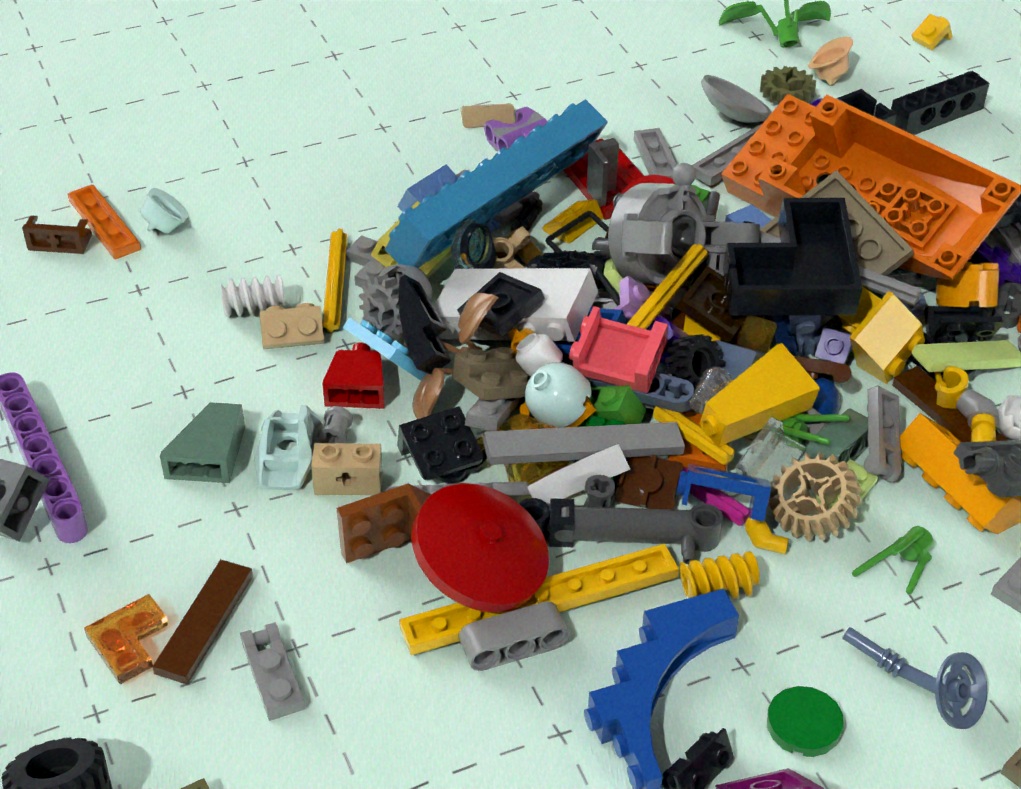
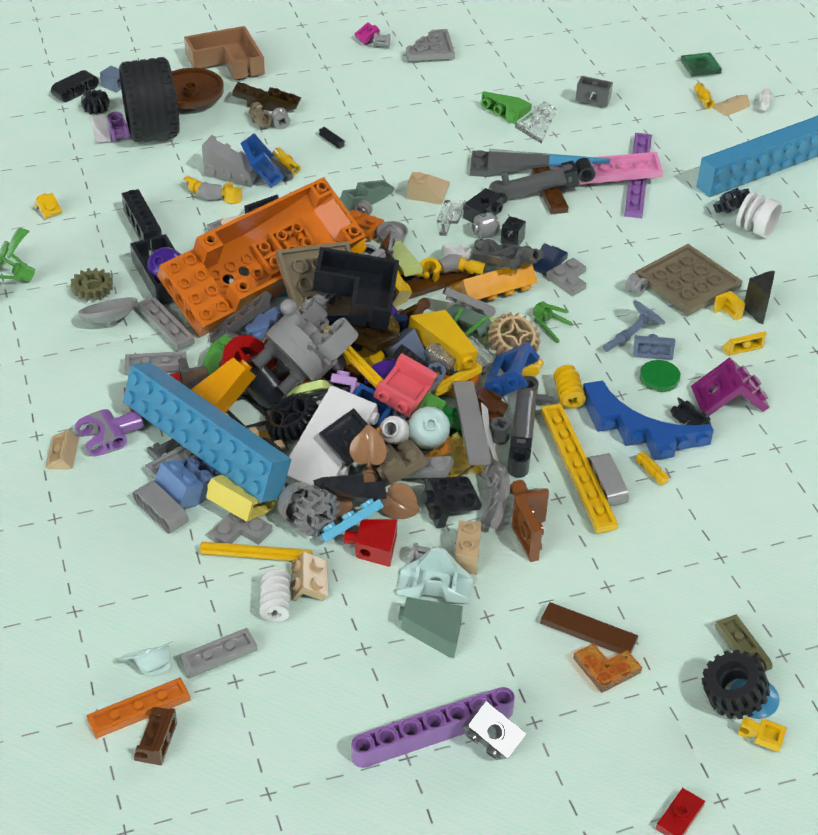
camera: 85 degrees left, 0 degrees up
(173, 265) = (218, 652): none -> light grey plate
(272, 672) = (629, 595): light grey plate -> none
(385, 196) = (160, 507): none -> light grey beam
(480, 547) = (559, 473): red dish -> none
(557, 704) = (652, 468): none -> yellow axle
(579, 195) = (225, 384): none -> light orange slope
(738, 195) = (243, 316): none -> dark grey plate
(832, 59) = (69, 254): light nougat piece -> none
(874, 707) = (653, 347): none -> sand blue tile

